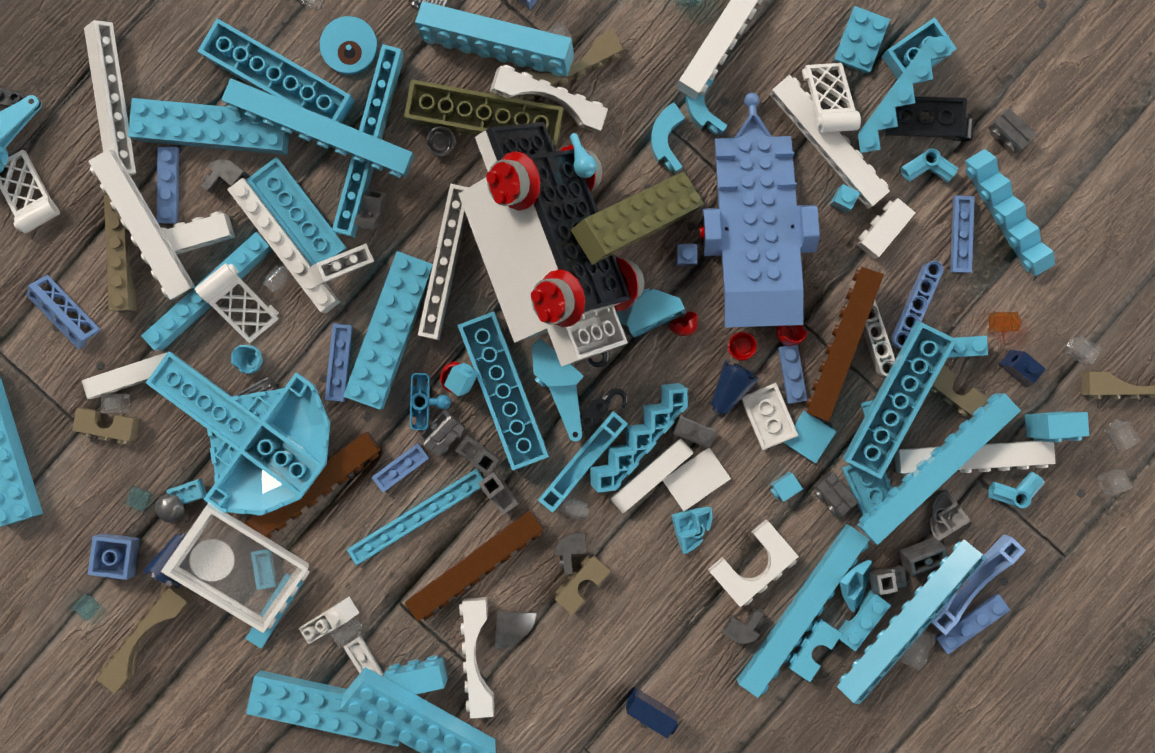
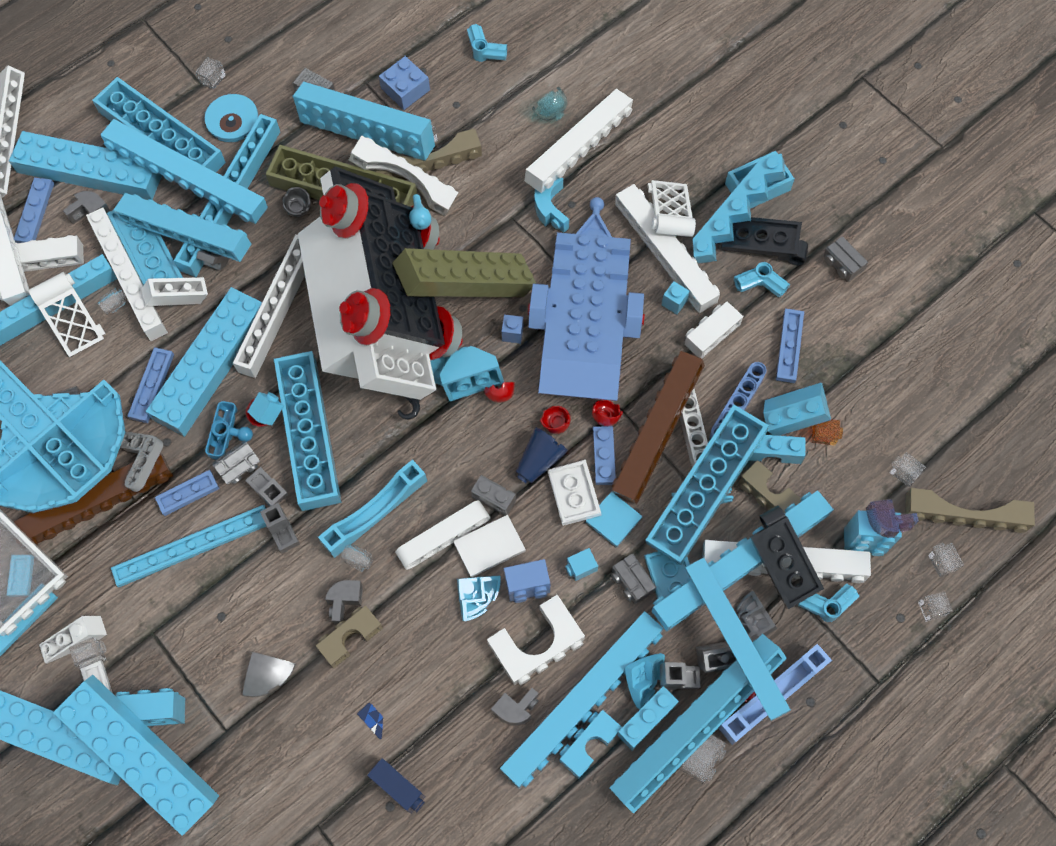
camera: 10 degrees right, 20 degrees down
(247, 358) = (62, 368): medium azure hair -> none
(332, 193) = (183, 227): none -> medium azure brick
(352, 435) = (147, 451): none -> light grey beam
(474, 565) = (238, 601): reddish brown brick -> none
(480, 695) = (213, 745): white arch -> none
(562, 384) = (370, 425): medium azure slope -> none
(615, 651) = (372, 718): none -> dark blue sticker
(640, 438) = (437, 494): medium azure brick -> none
(664, 124) = (508, 216): medium azure arch -> none
(739, 513) = (527, 581): none -> medium blue brick
(861, 40) = (707, 168): medium azure plate -> none
(943, 550) = (738, 639): none -> medium azure tile
(971, 455) = (778, 542): none -> black hinge
(973, 623) = (770, 742): medium blue plate -> none
(975, 305) = (796, 410): none -> medium azure slope
(1009, 213) = (838, 331): medium azure brick -> none
(1023, 369) = (843, 477): dark blue torso -> none
(1074, 424) = (885, 522): none -> clear purple brick

